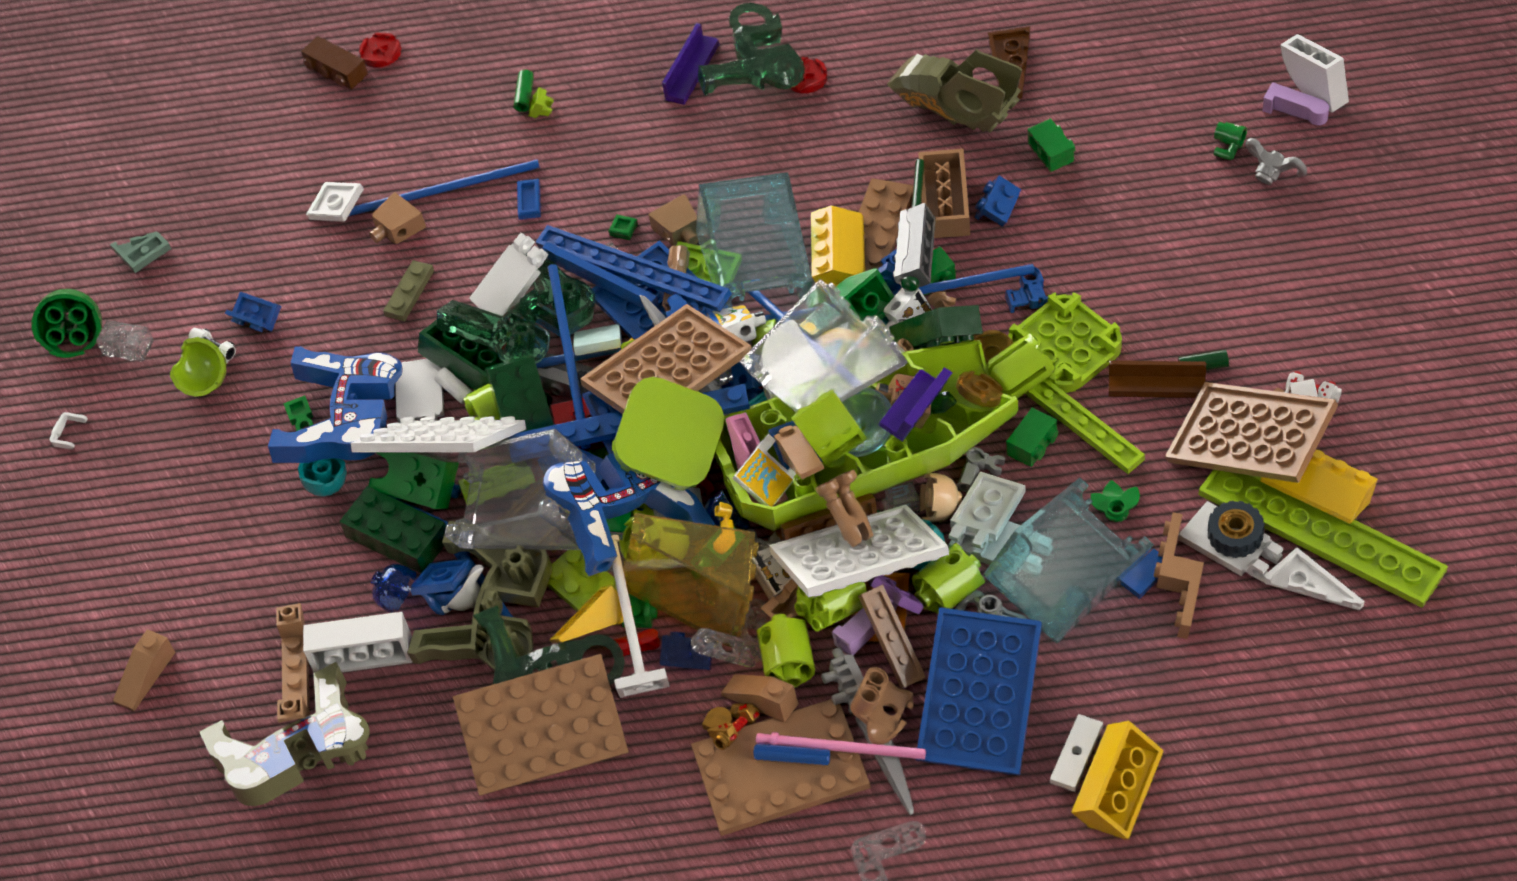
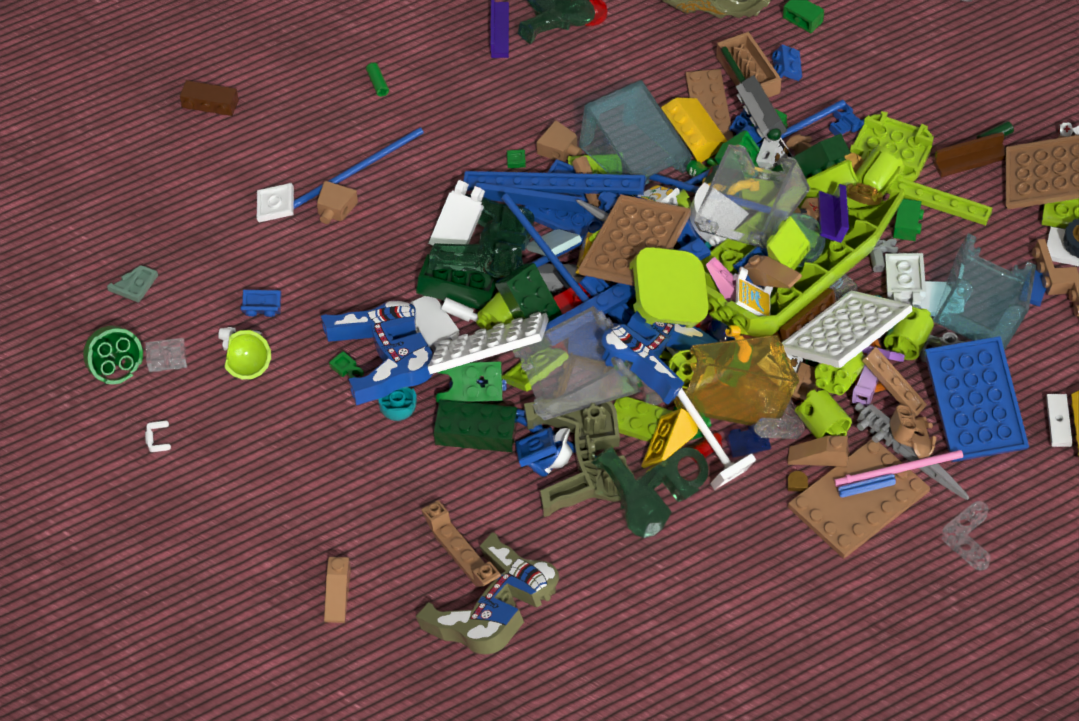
camera: 30 degrees left, 0 degrees up
(358, 642) = (502, 513): white brick -> none
(380, 50) = (239, 78): red tile -> none
(392, 586) = (505, 465): clear blue cylinder -> none
(408, 290) = (375, 252): olive plate -> none
(528, 199) = (429, 158): blue tile -> none
(539, 104) = (397, 85): lime tile -> none
(540, 725) = (675, 525): medium nougat plate -> none
(727, 733) = (813, 486): pearl gold piece -> none
(845, 508) = (827, 299): medium nougat piece -> none
(939, 497) = (868, 278): light nougat cylinder -> none
(1114, 499) = (990, 245): green plate -> none

